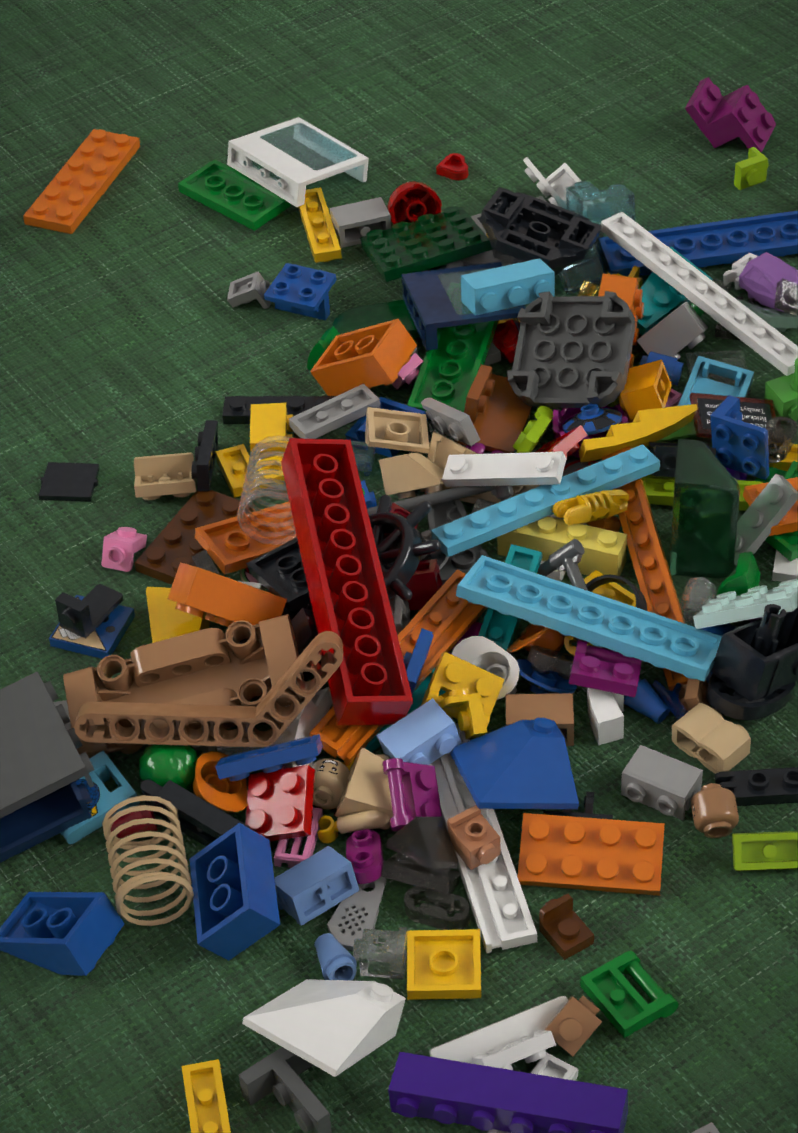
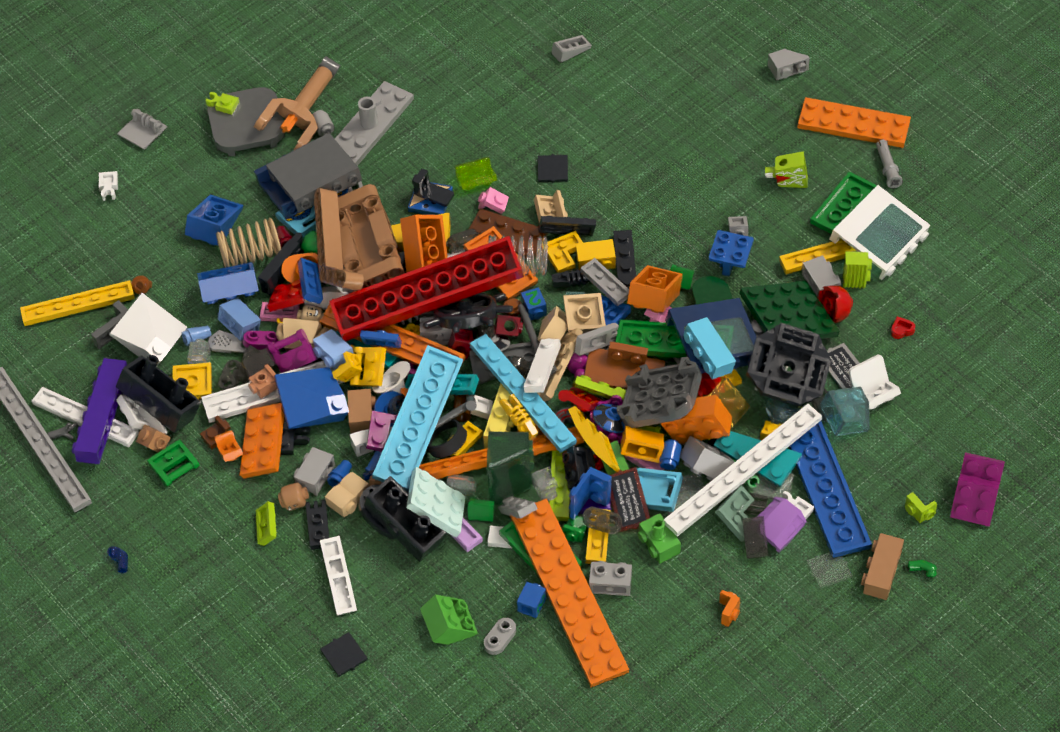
camera: 85 degrees right, 10 degrees up
(63, 563) = (475, 173): none -> clear neon green bracket
(162, 239) = (789, 170): none -> lime torso
(184, 151) = (890, 169): none -> light grey pin
(189, 1050) = (141, 284): none -> dark orange plate
(360, 176) = (856, 269): none -> lime brick
(490, 990) = (158, 393): none -> black piece
(605, 904) = (227, 446): none -> orange bracket
(671, 746) = (339, 473): none -> blue cone

